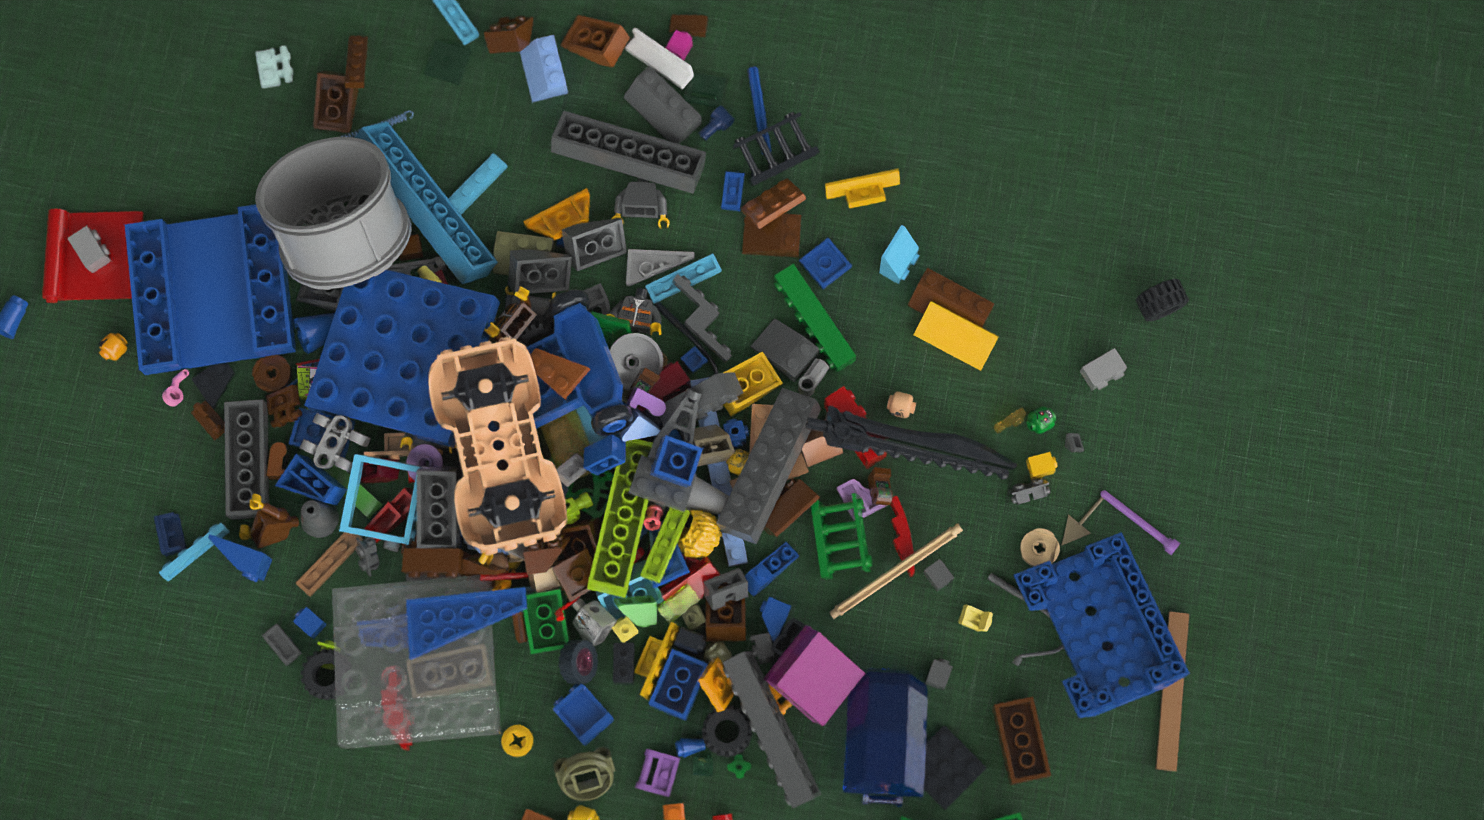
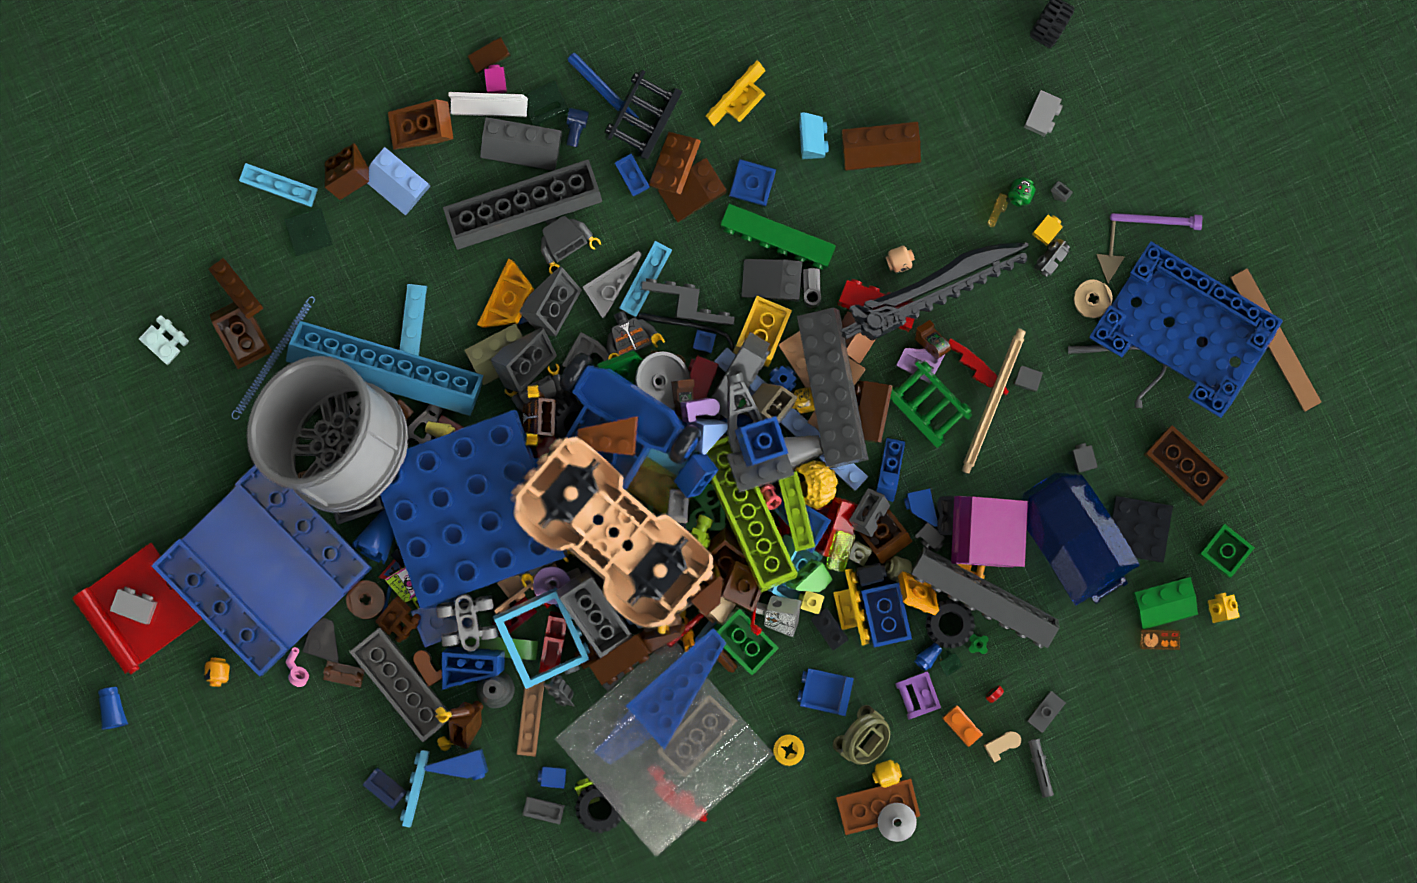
camera: 40 degrees left, 10 degrees up
(578, 661) = (794, 654): black wheel -> none
(956, 335) = (904, 169): yellow tile -> none
(975, 618) = (1082, 393): light yellow bracket -> none

